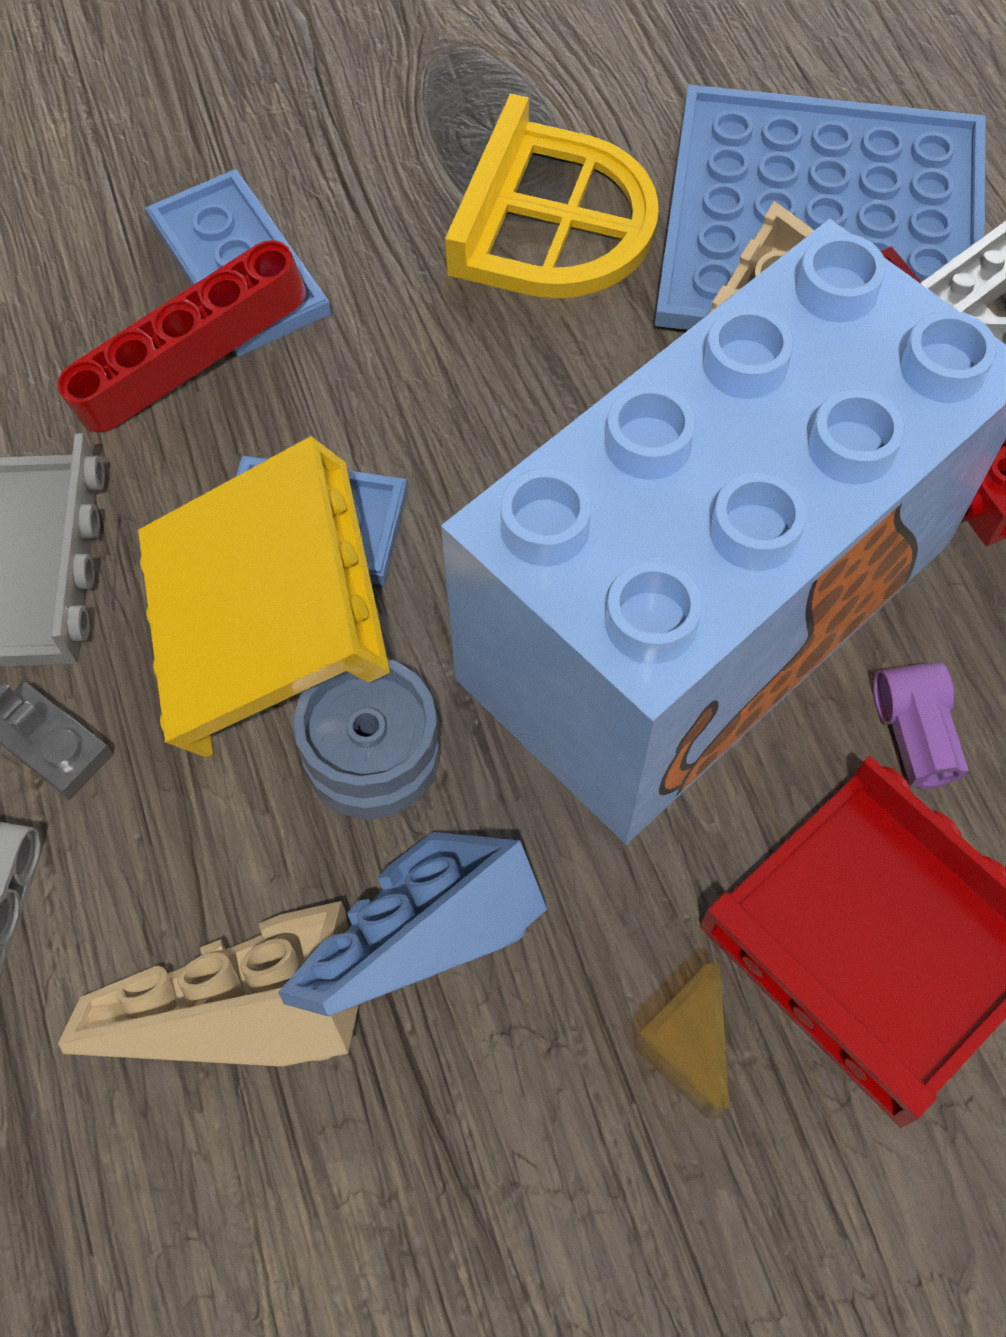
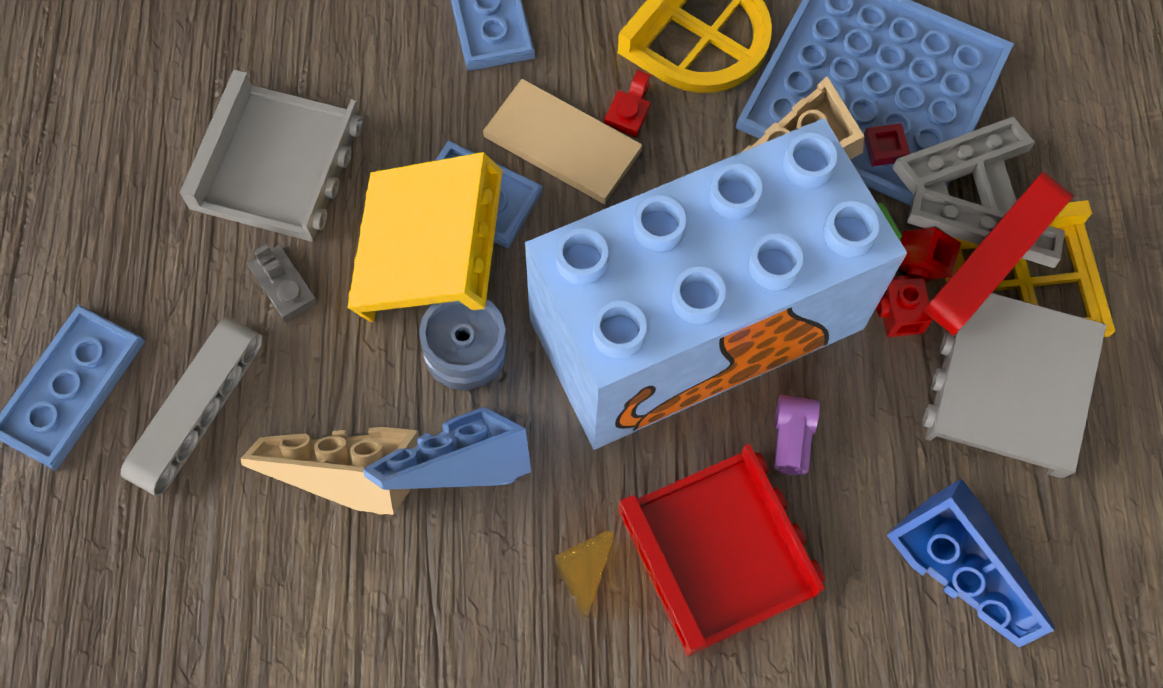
camera: 15 degrees right, 5 degrees up
(182, 336) = (419, 49): red beam -> none
(413, 410) = (563, 141): none -> tan tile
(494, 342) = (630, 109): none -> red plate

